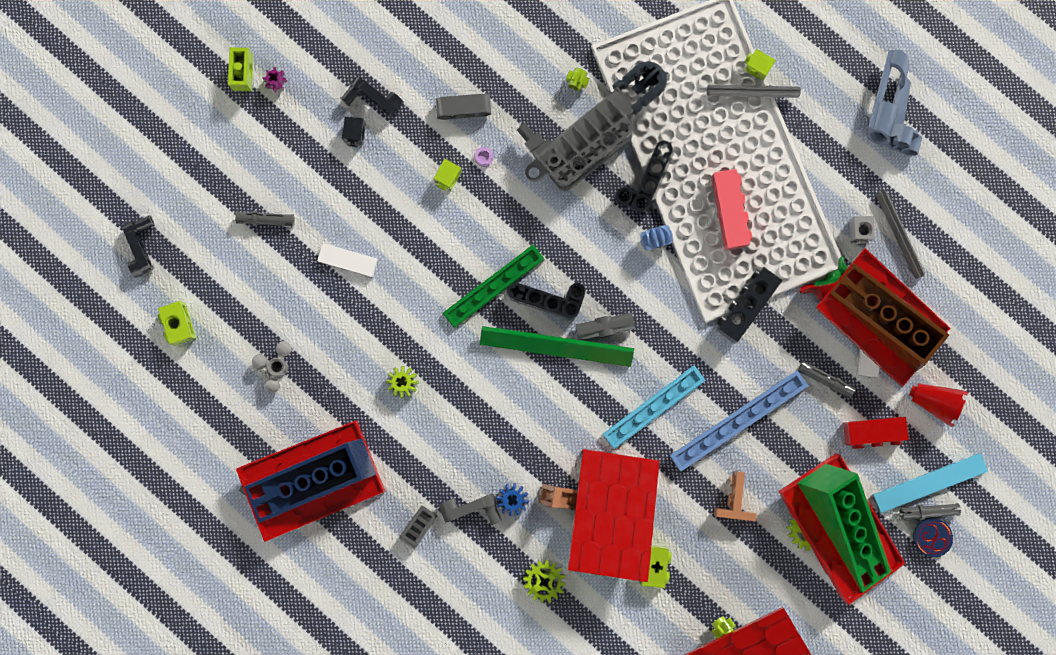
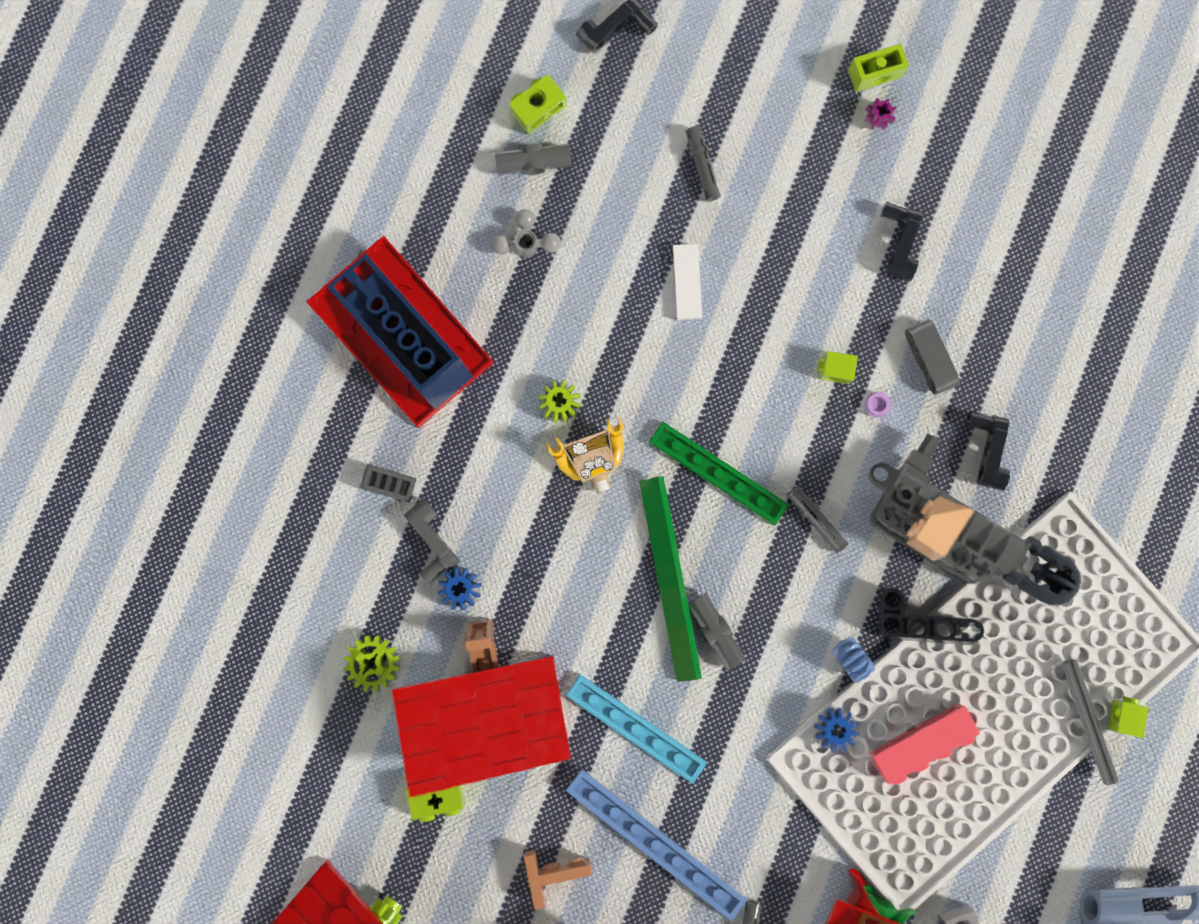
camera: 70 degrees right, 0 degrees up
(217, 340) = (533, 159): none -> dark grey piece
(353, 131) = (851, 232): black brick -> none
(450, 372) = (592, 456): none -> torso
(529, 235) = (838, 543): none -> dark grey pin
(530, 80) = (997, 429): none -> black beam
(541, 305) = (726, 542): black beam -> none
(577, 79) = (1021, 489): lime gear -> none
(585, 147) = (938, 527): none -> light nougat slope
(695, 261) = (845, 733): none -> blue gear
(769, 283) = (846, 826): black brick -> none

